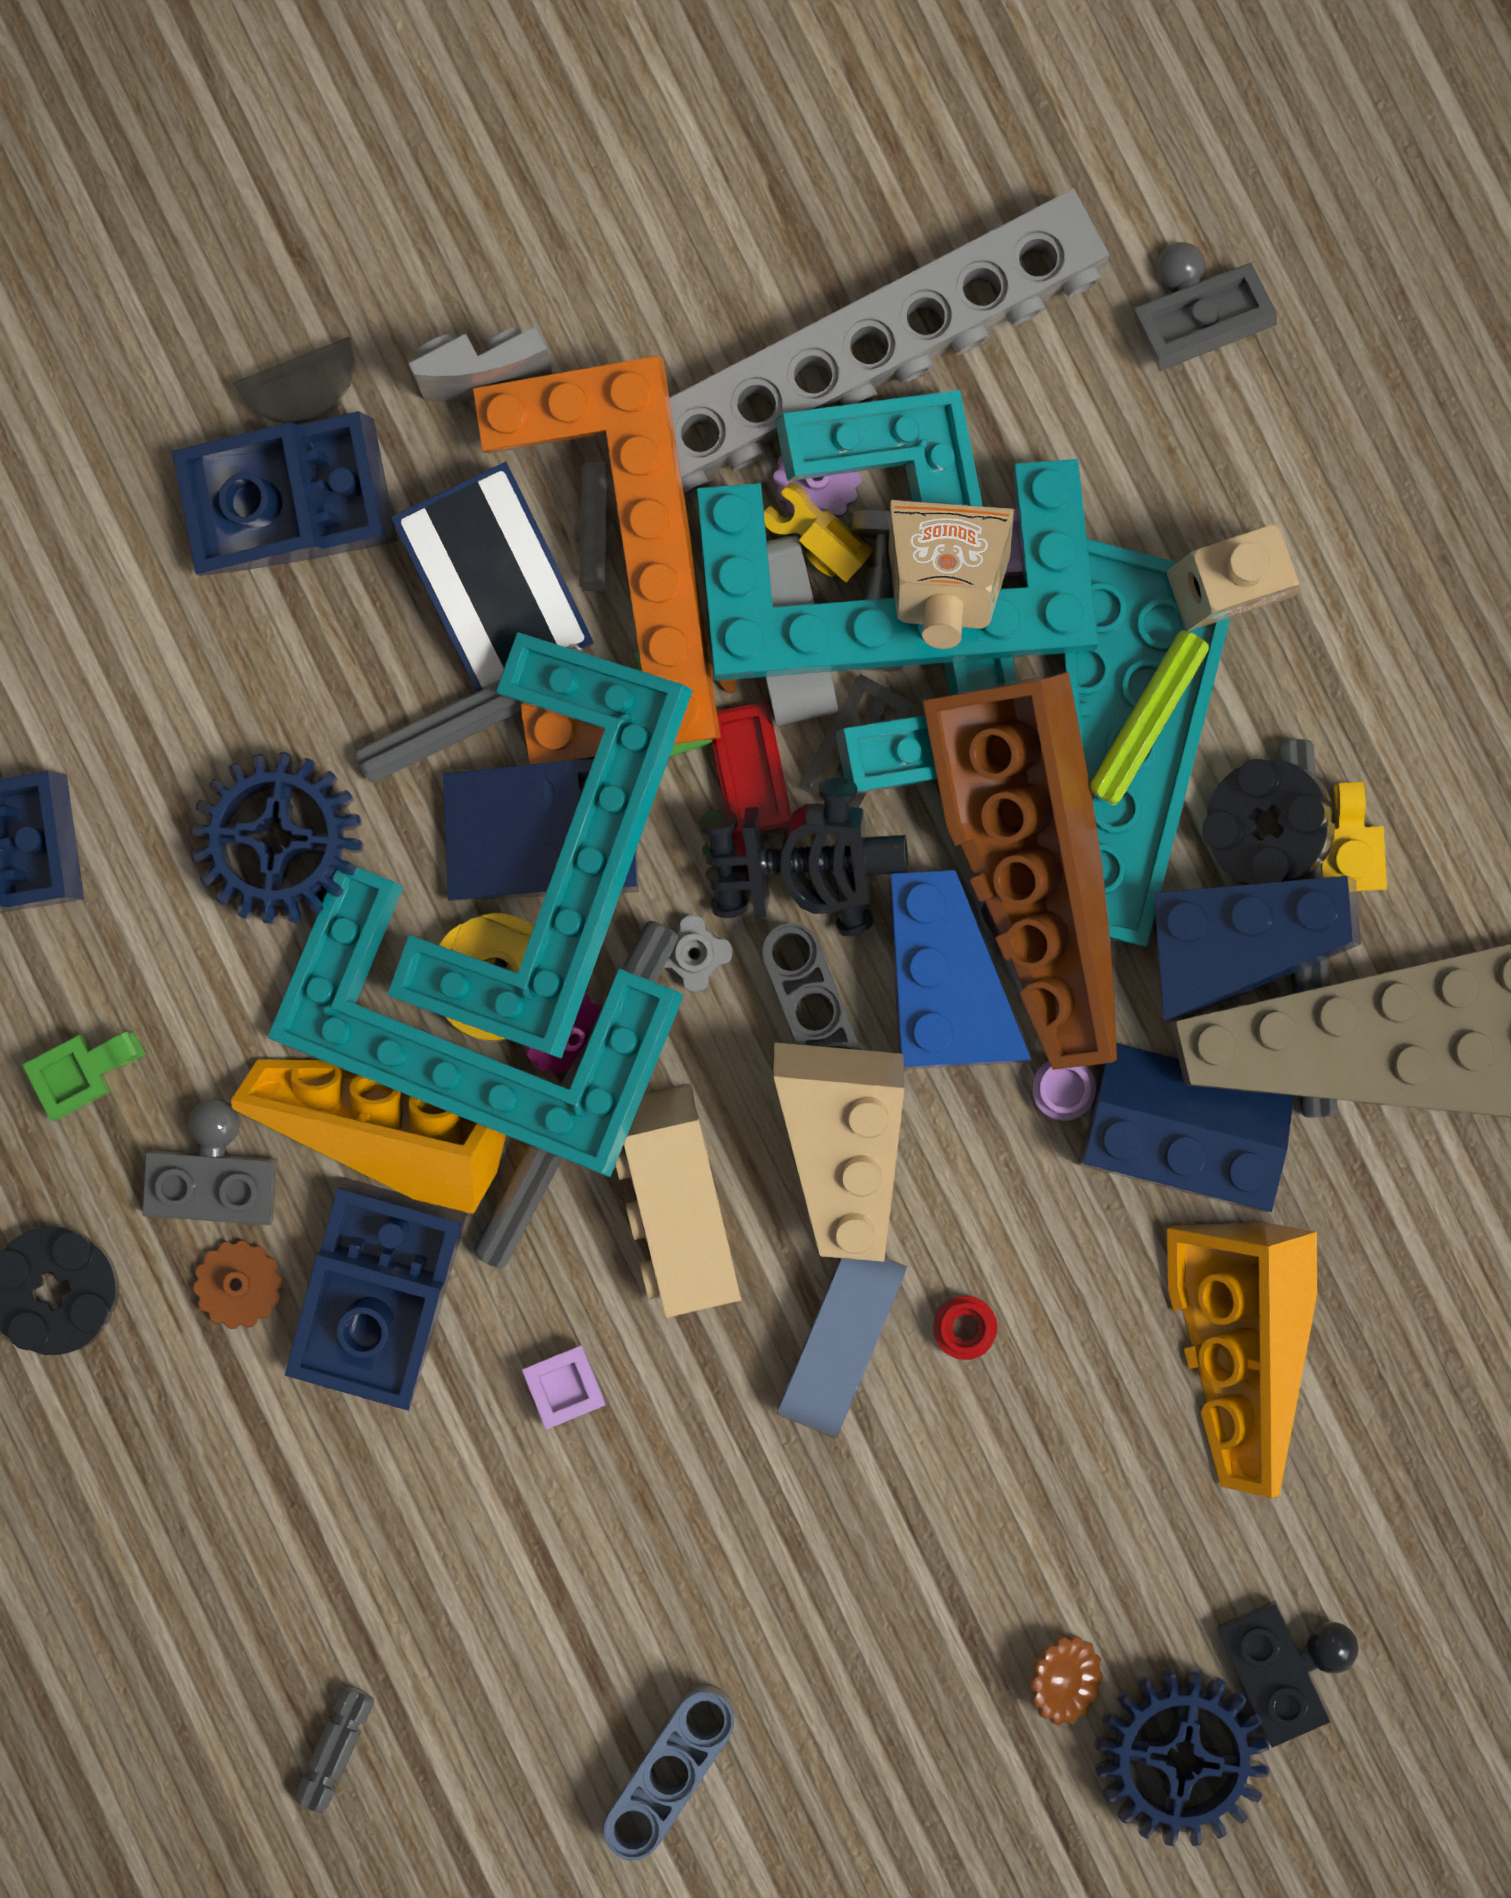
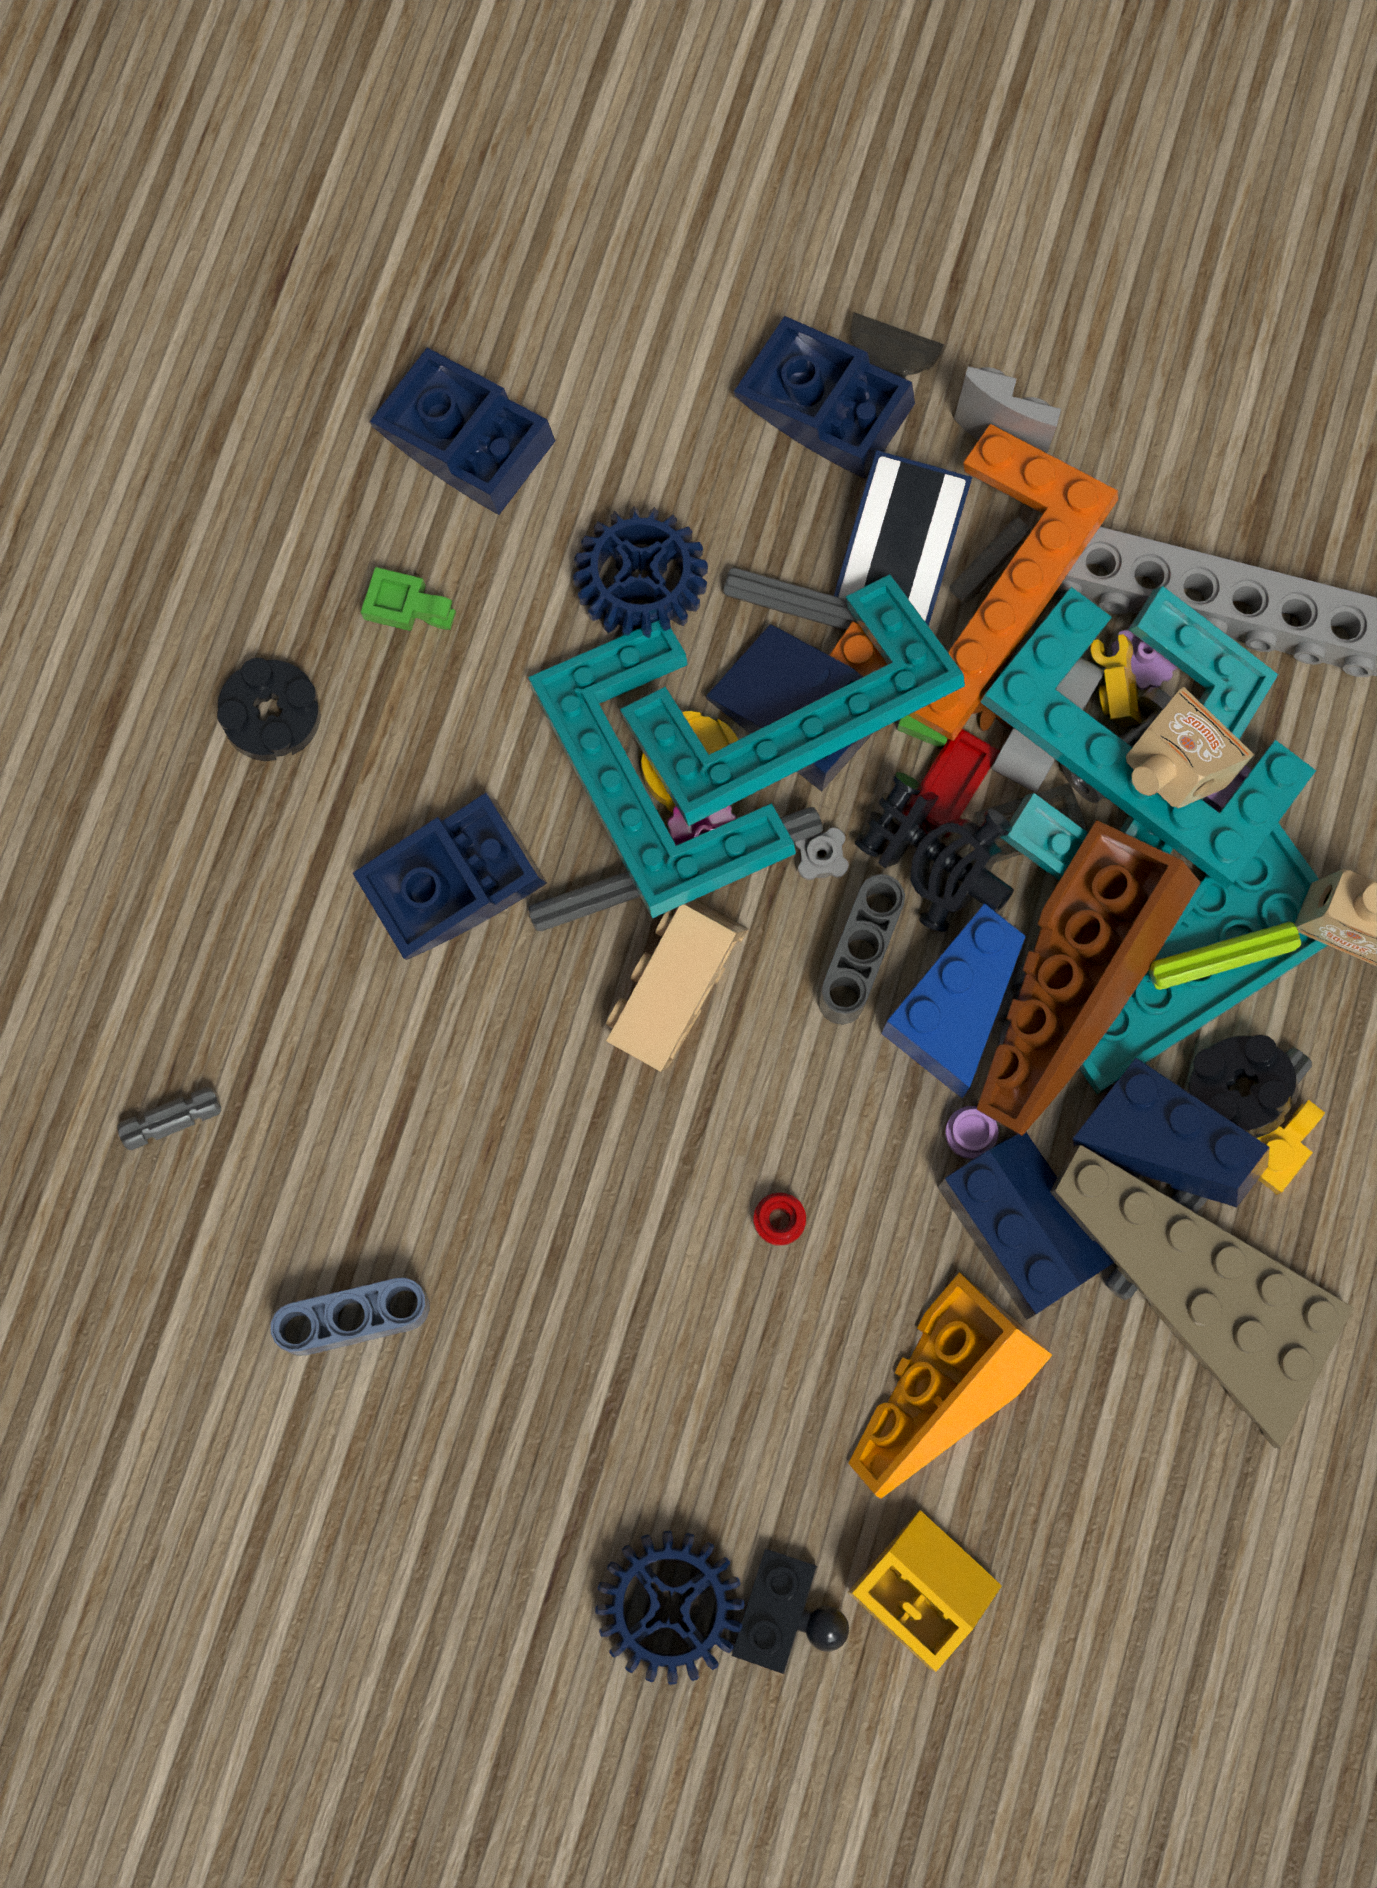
camera: 40 degrees right, 10 degrees down
(209, 1182) = (417, 730): dark grey plate -> none
(237, 1284) = (376, 803): dark orange piece -> none
(374, 1130) = (541, 786): light orange wedge -> none
(564, 1387) = (507, 1031): lavender plate -> none
(841, 1343) = (698, 1155): sand blue beam -> none
(844, 1139) = (810, 1031): tan wedge -> none
(1065, 1679) = (642, 1490): dark orange piece -> none
(1389, 1538) = (926, 1591): none -> yellow slope

